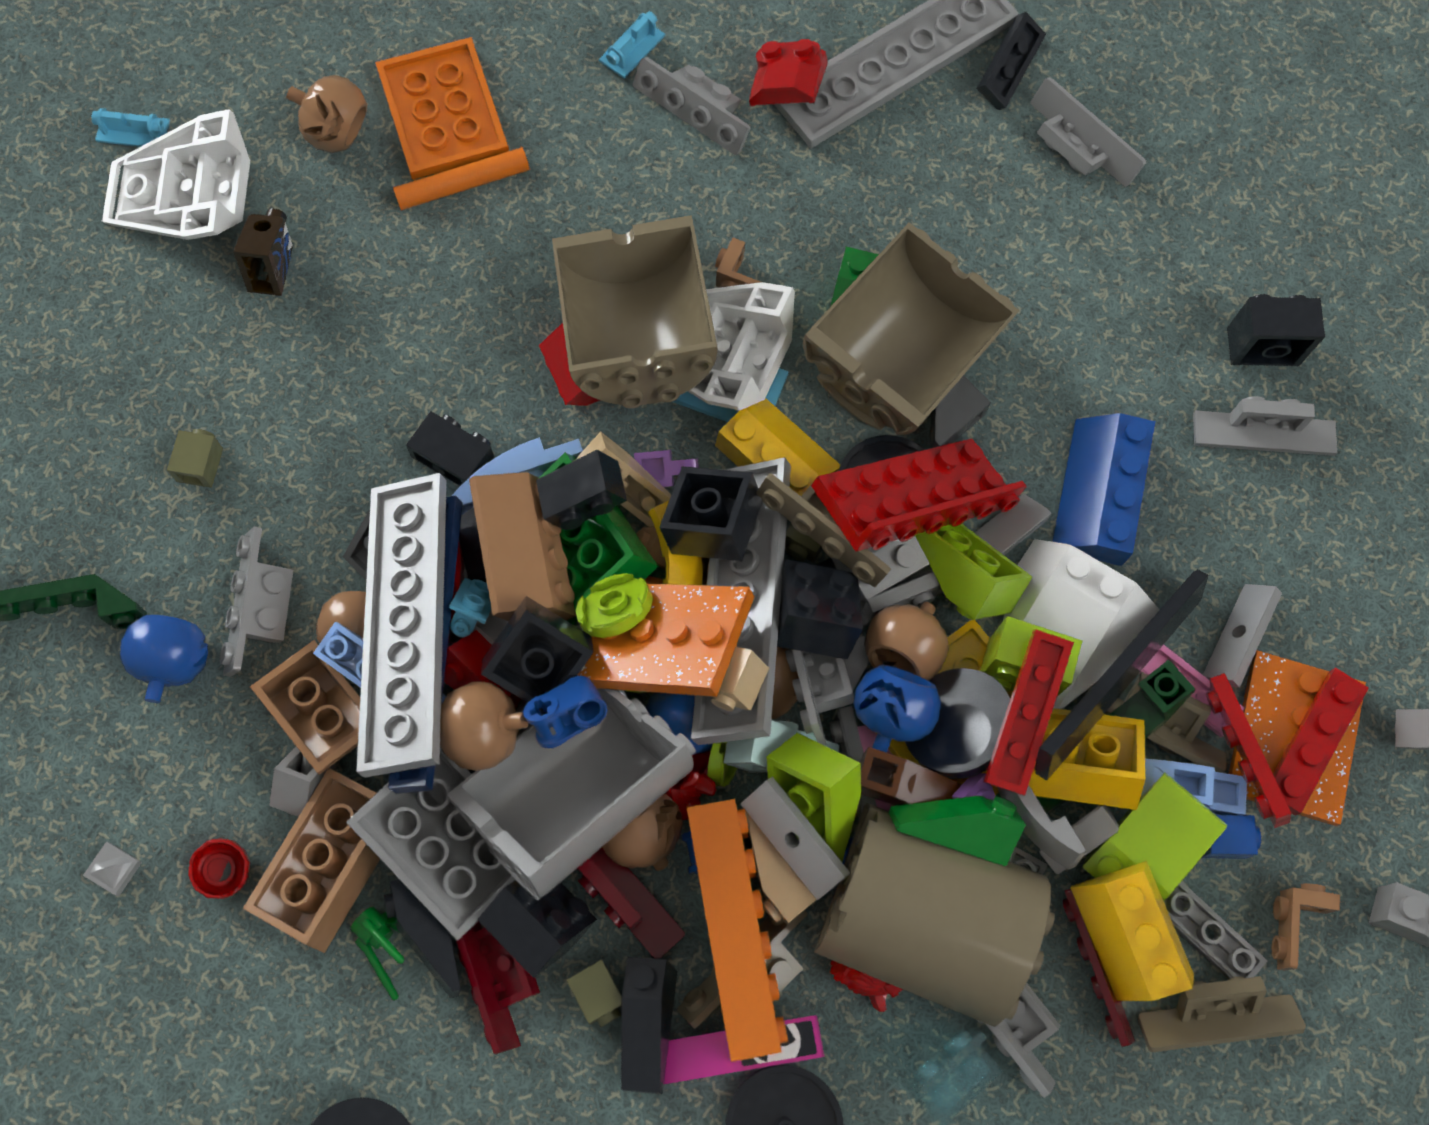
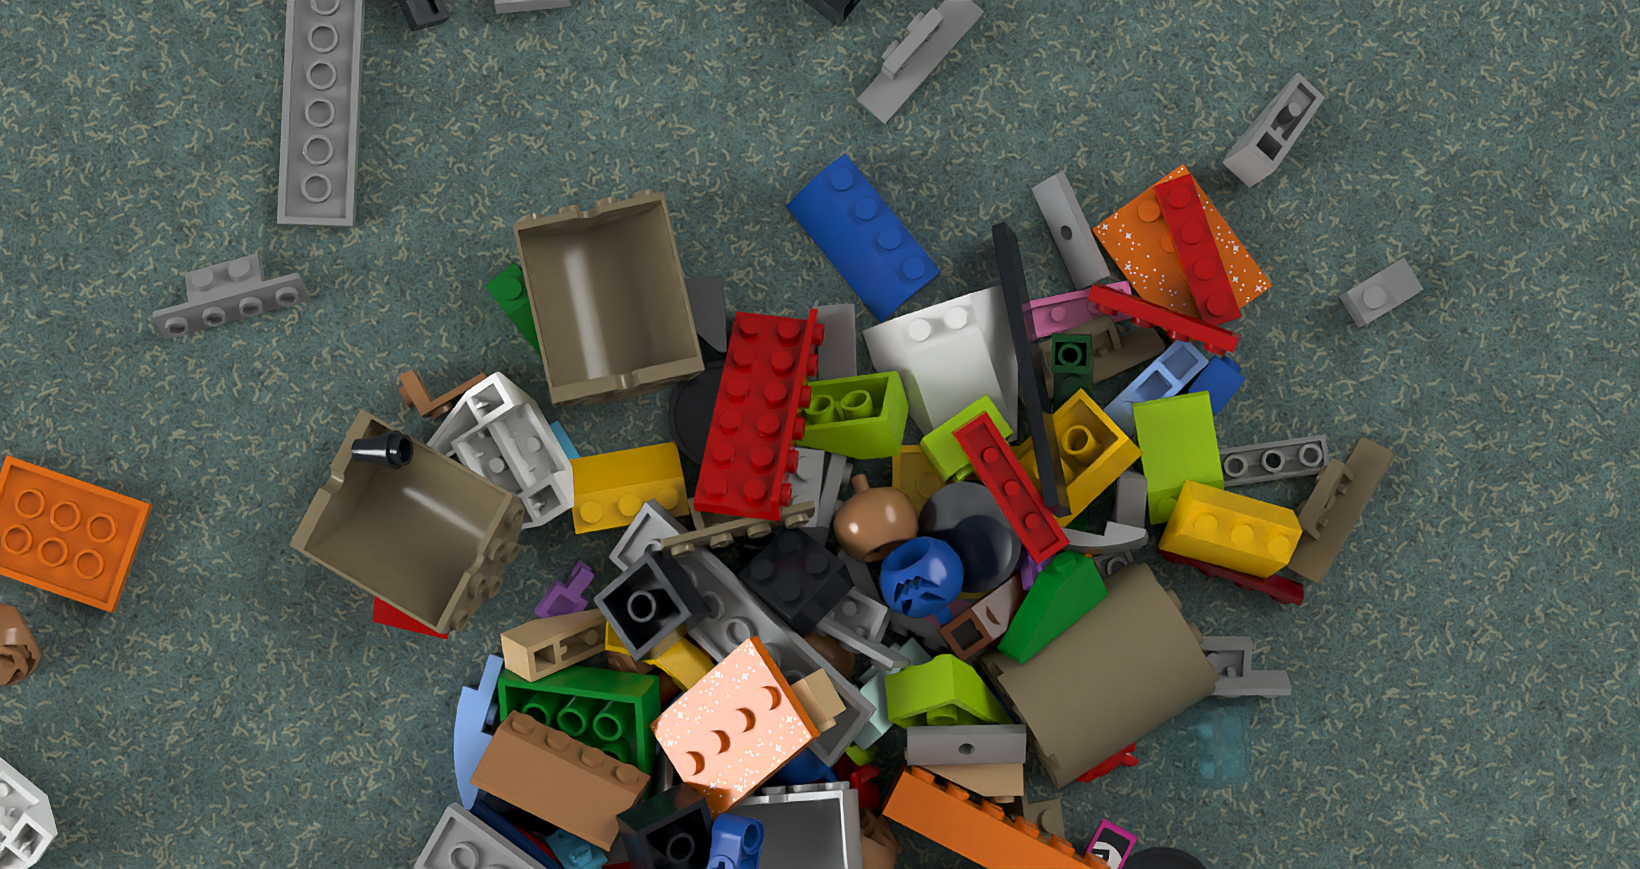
camera: 45 degrees left, 15 degrees up
(267, 239) = (103, 799): dark brown torso -> none
(448, 448) = (413, 767): black brick -> none
(461, 178) = (149, 568): orange piece -> none
(581, 490) = (551, 697): black brick -> none
(614, 605) = (673, 746): lime tile -> none
(633, 45) = (125, 309): medium azure hinge -> none
(677, 245) = (385, 450): none -> black cone
(788, 72) = (270, 195): red slope -> none
(1287, 910) = (1306, 361): medium nougat bracket -> none

